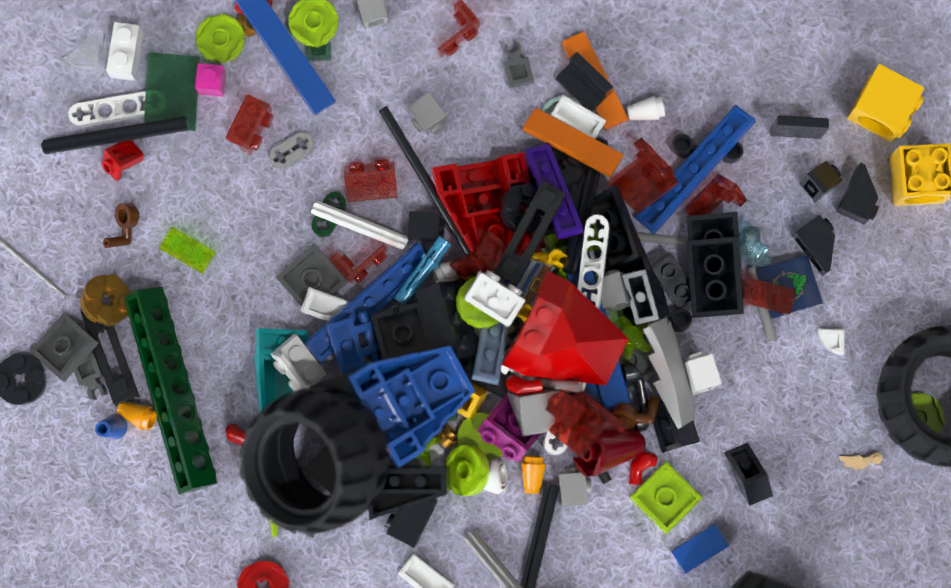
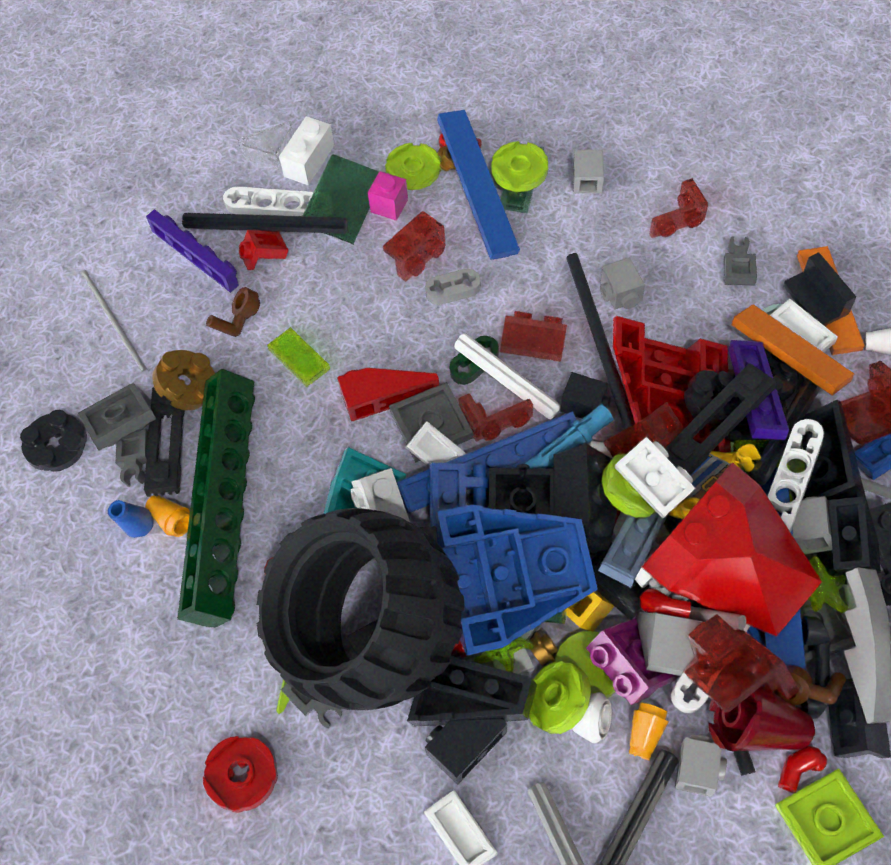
camera: 20 degrees right, 20 degrees down
(54, 172) = (187, 245): none -> dark purple plate
(261, 265) = (375, 389): none -> red slope

